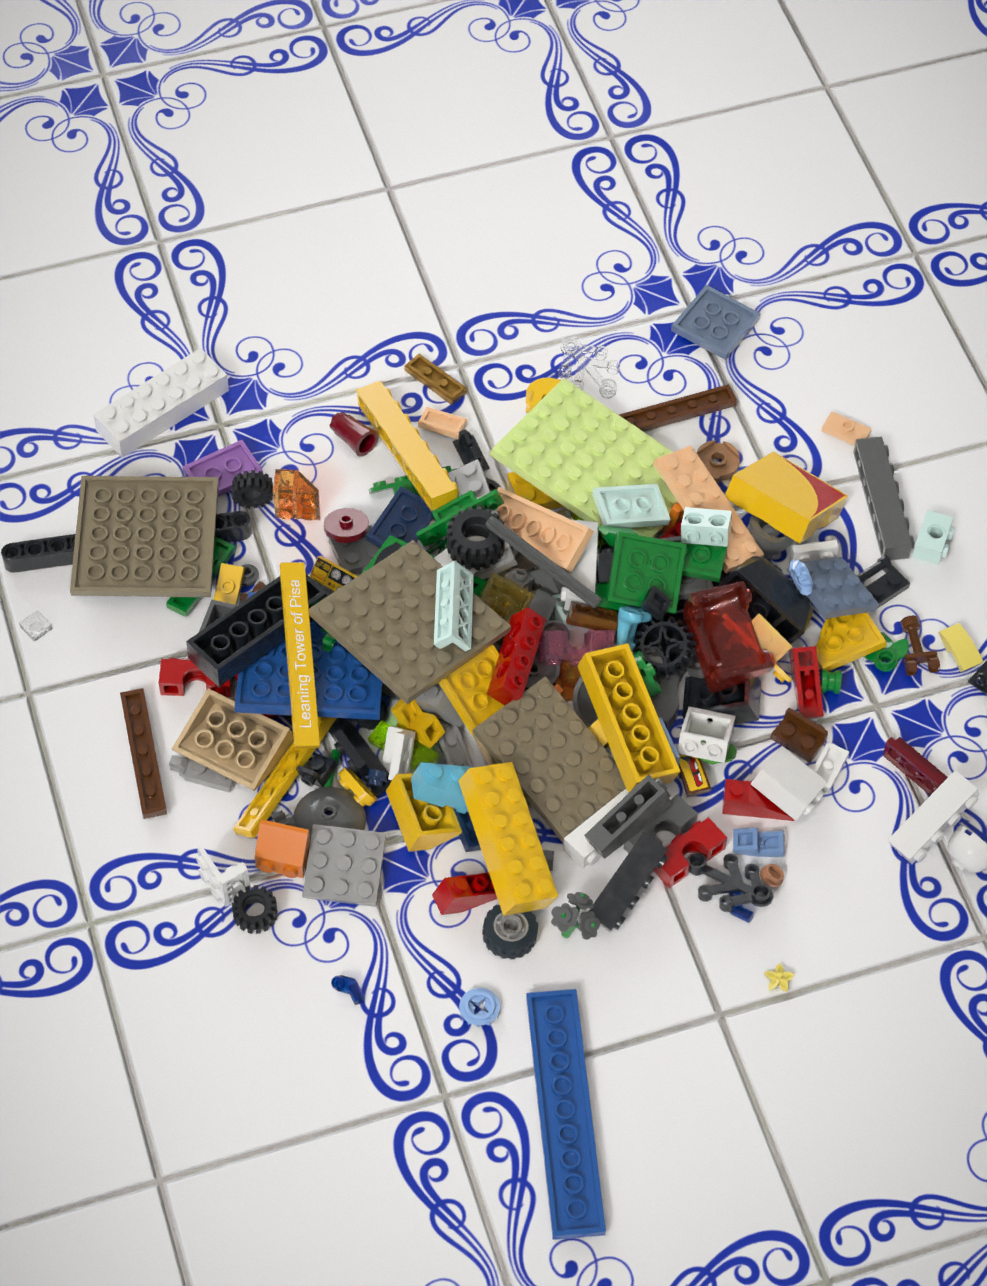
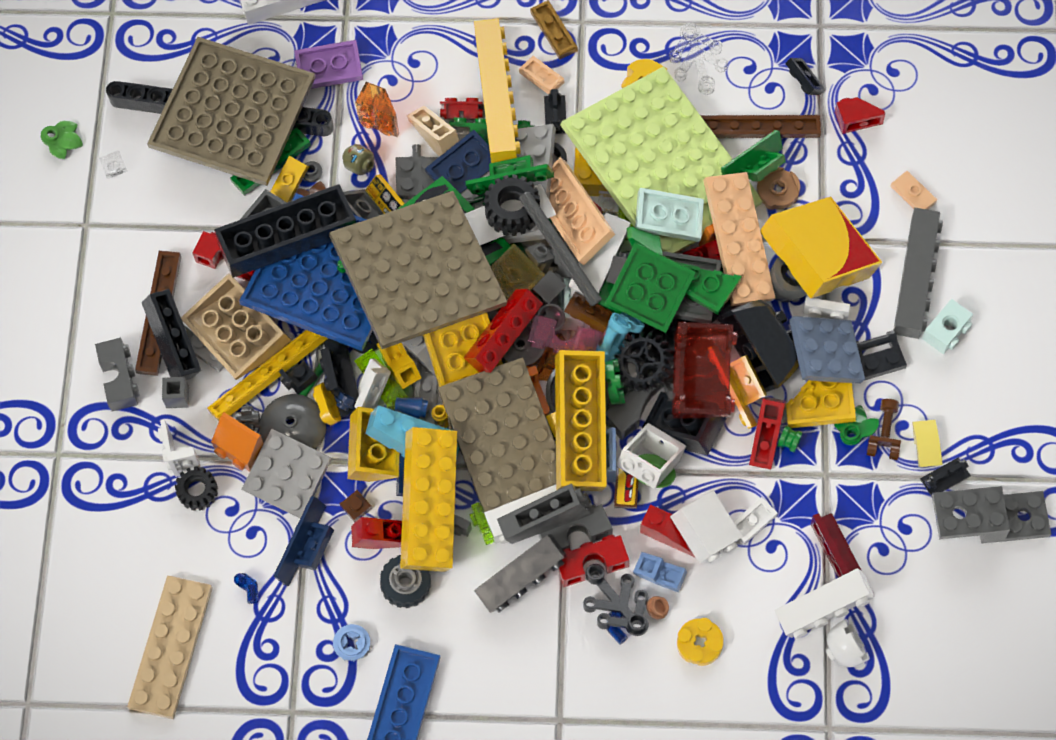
camera: 25 degrees right, 10 degrees up
(115, 808) = (121, 391): none -> dark grey arch
(170, 767) = (171, 335): none -> black brick
(195, 821) = (175, 392): none -> dark grey brick
(252, 489) = (343, 91): black tyre -> none
(290, 1074) = (170, 647): none -> tan plate
(291, 548) = (358, 159): none -> olive head
(299, 655) = (308, 271): yellow tile -> none
(346, 525) = (413, 151): plate -> none
(354, 433) = (457, 63): dark red plant -> none
(366, 475) = (453, 107): none -> red hinge
(368, 500) = (434, 130): none -> tan slope
(394, 926) = (306, 543): none -> dark blue bracket
(427, 876) = (355, 506): none -> reddish brown plate
(449, 603) = (456, 264): light aqua fence -> none
(450, 757) = (413, 407): none -> blue cone
(479, 758) = (439, 414): none -> yellow pin
(563, 851) = (478, 519): none -> clear neon green plate
(566, 917) = (451, 591): dark grey plant -> none
(655, 603) = (647, 319): black plate -> none
(691, 434) = (758, 159): none -> green bracket
(692, 351) = (805, 76): none -> black plate
(706, 526) = (723, 259): light aqua brick -> none
(715, 322) = (835, 47): sand blue plate -> none
(763, 375) = (857, 115): none -> red slope
(779, 978) = (625, 705): light yellow plant -> none
(800, 735) = (740, 482): reddish brown bracket -> none
(801, 577) = (793, 335): light blue gear -> none
(831, 883) = (704, 629): none -> yellow plate

